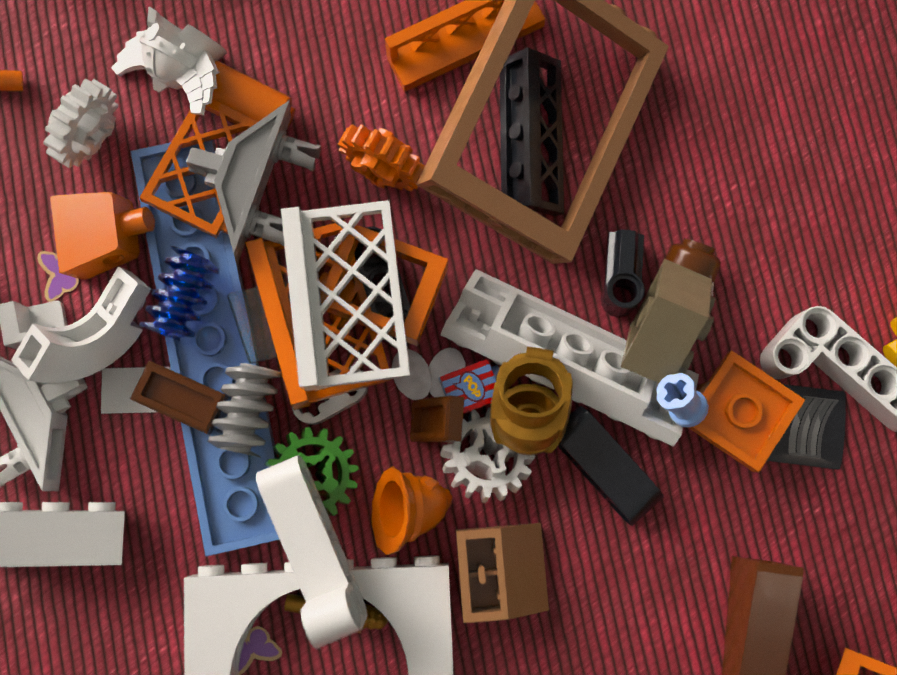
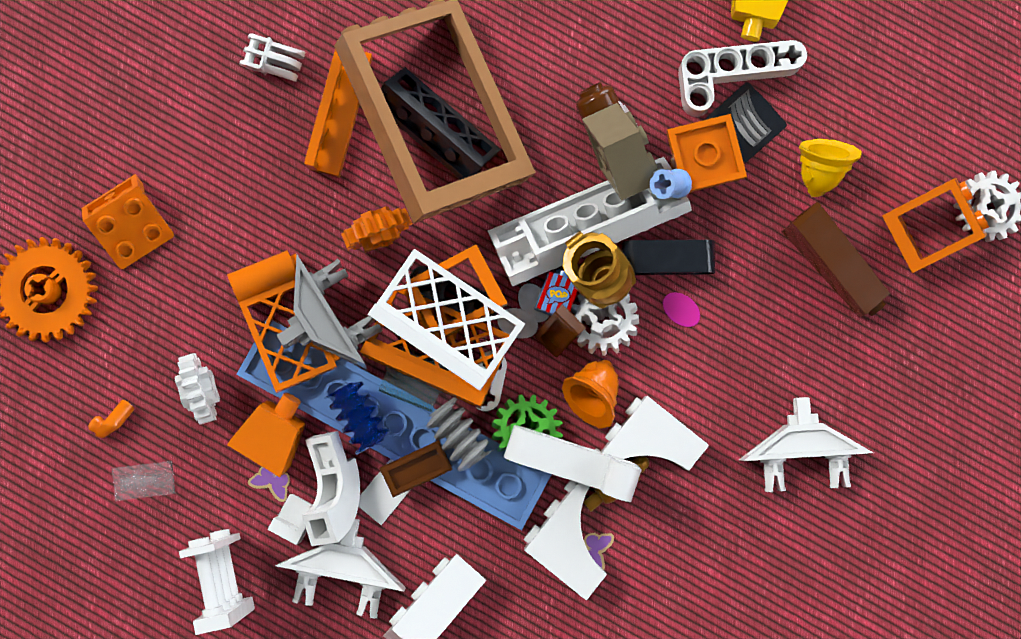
camera: 45 degrees left, 5 degrees up
(174, 59) = (203, 300): white helmet -> none
(501, 572) = (675, 369): medium nougat slope -> none
(566, 524) = (681, 309): none -> dark pink sticker
(623, 270) = (564, 145): black piece -> none
(840, 543) = (825, 164): none -> yellow piece

